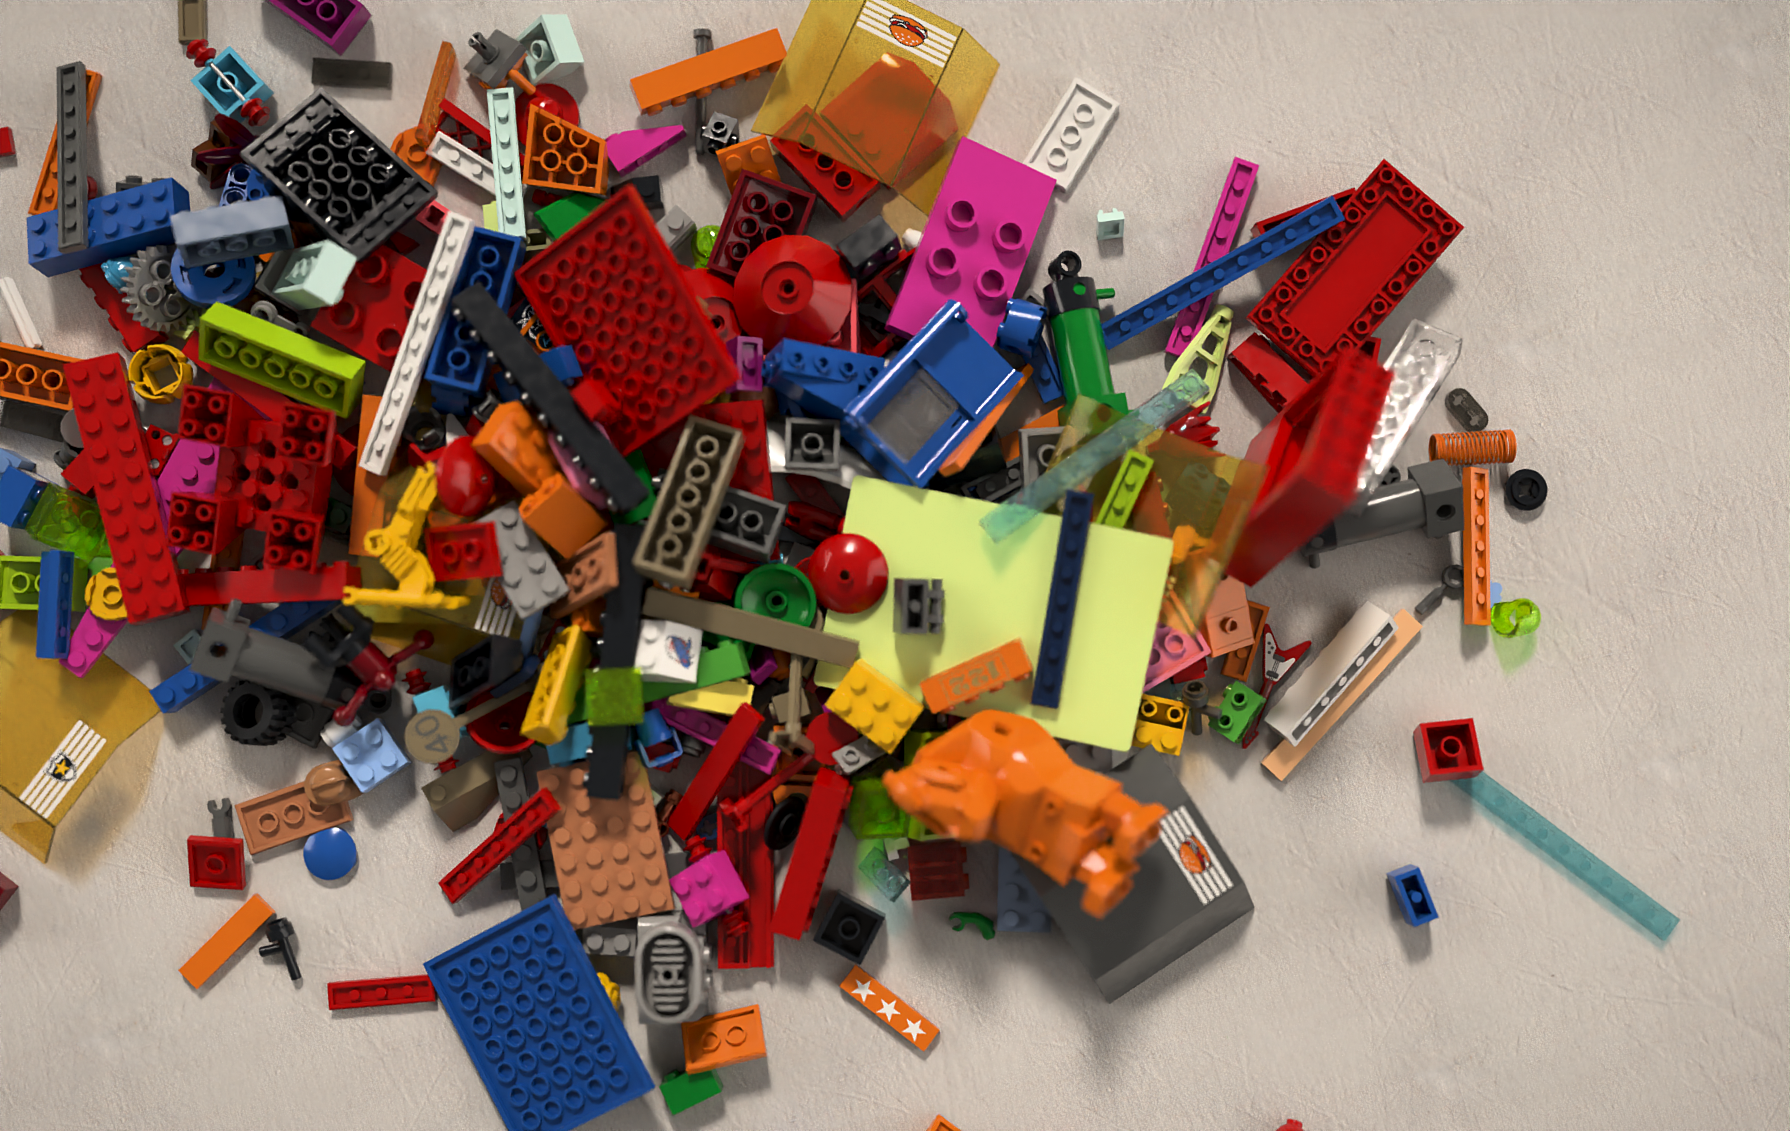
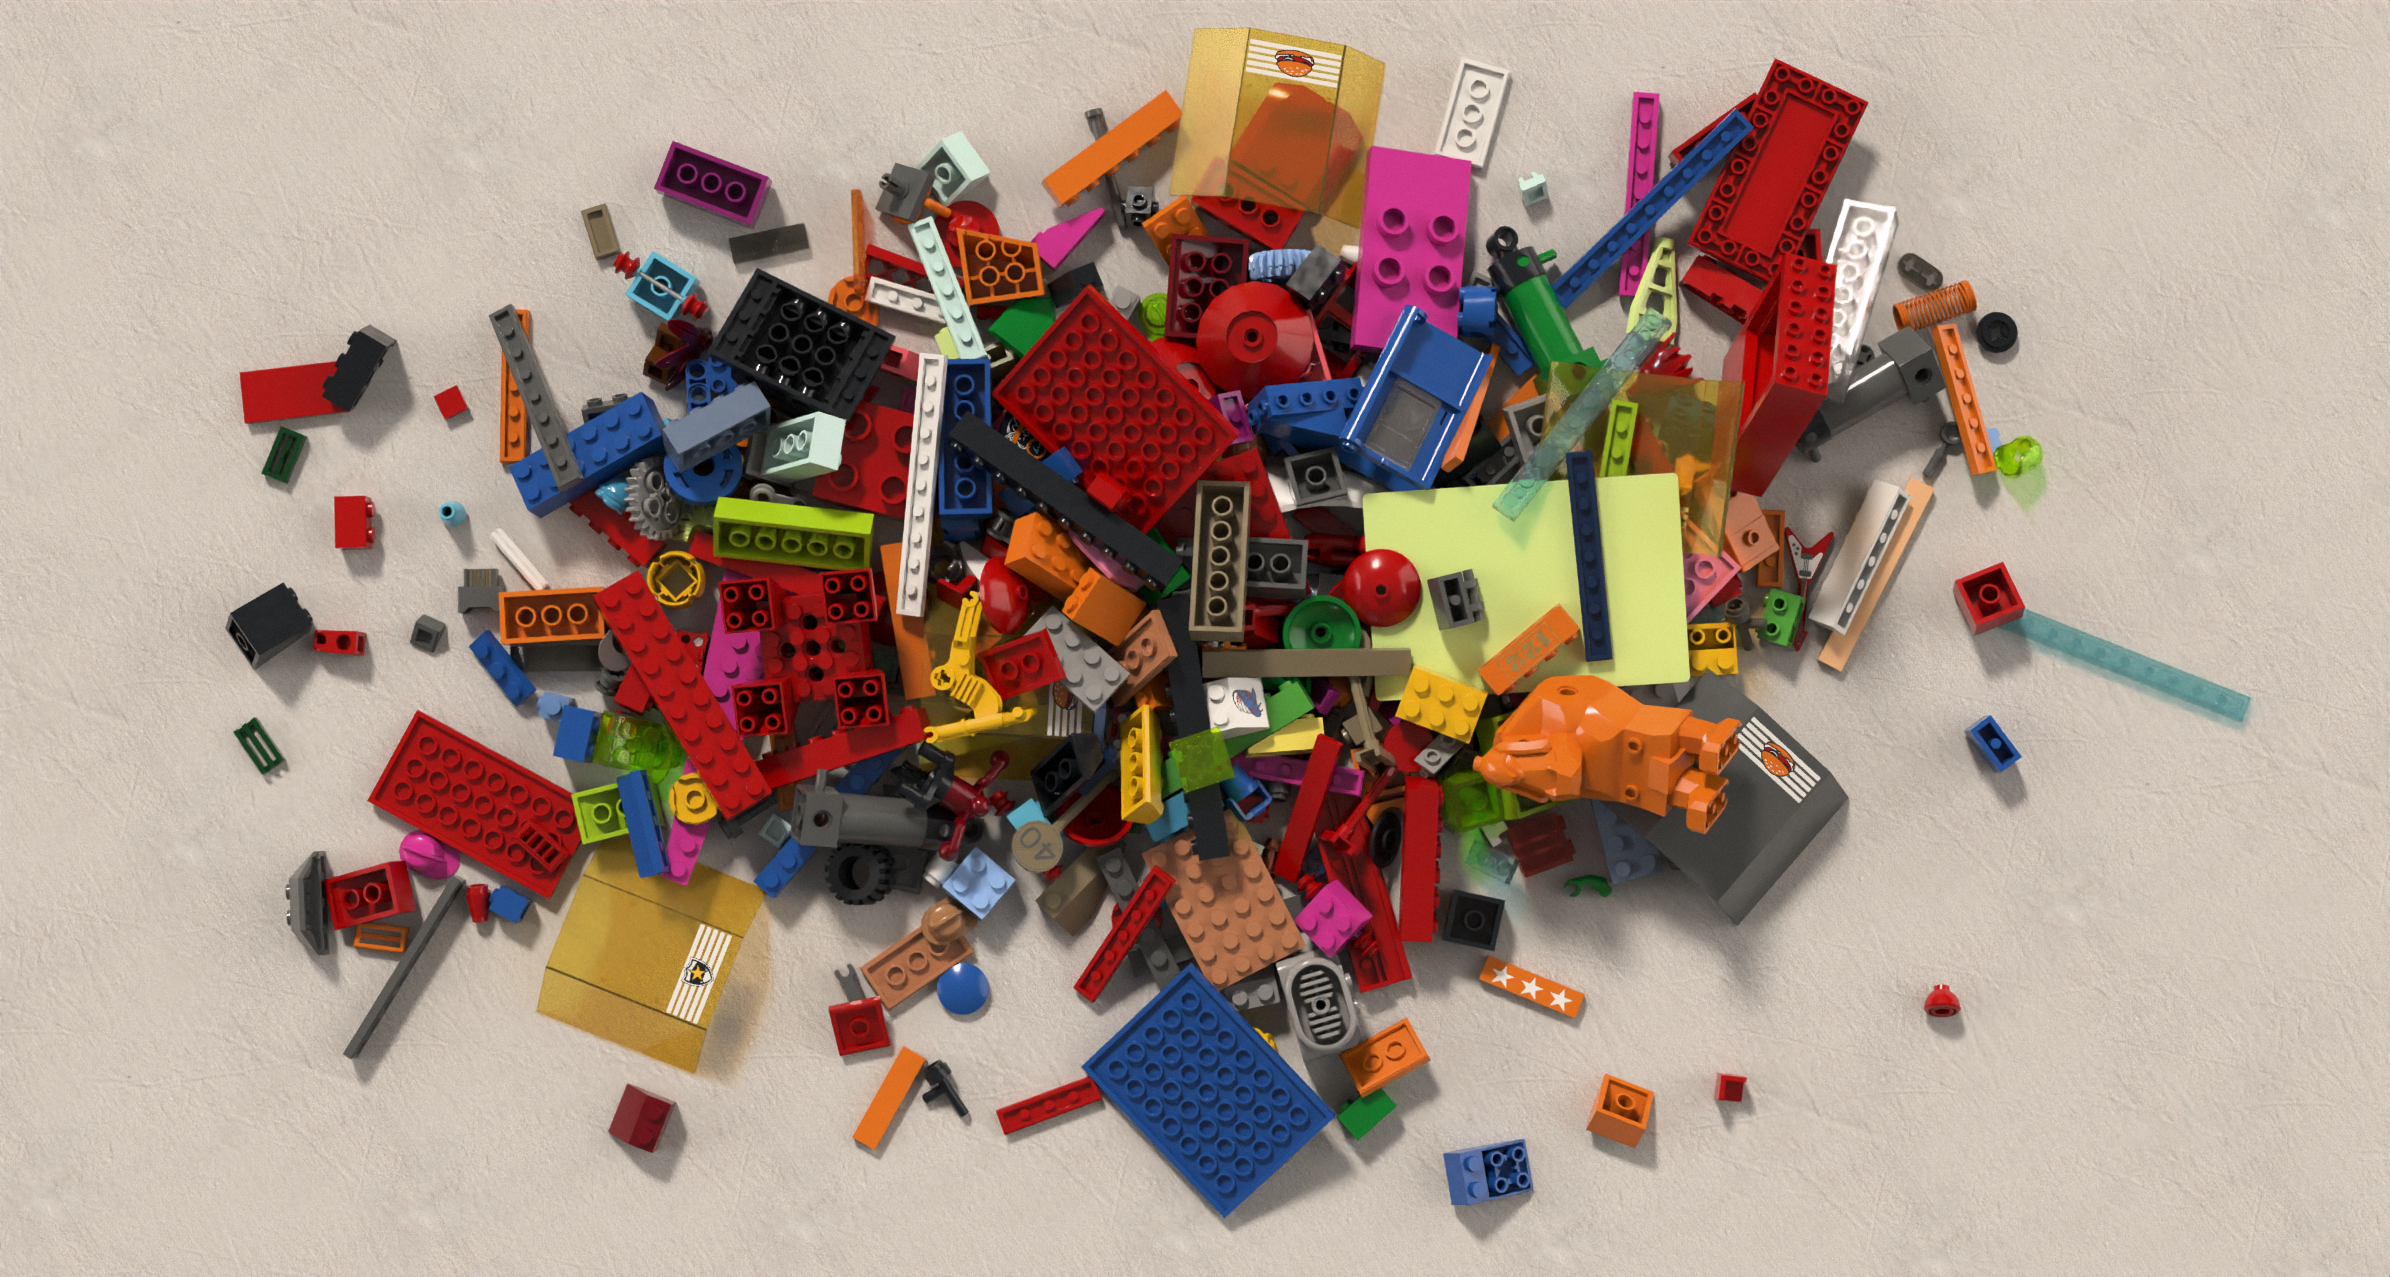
camera: 10 degrees left, 0 degrees up
(150, 632) = (733, 828): none -> dark grey piece
(833, 225) = (1275, 265): none -> light blue gear

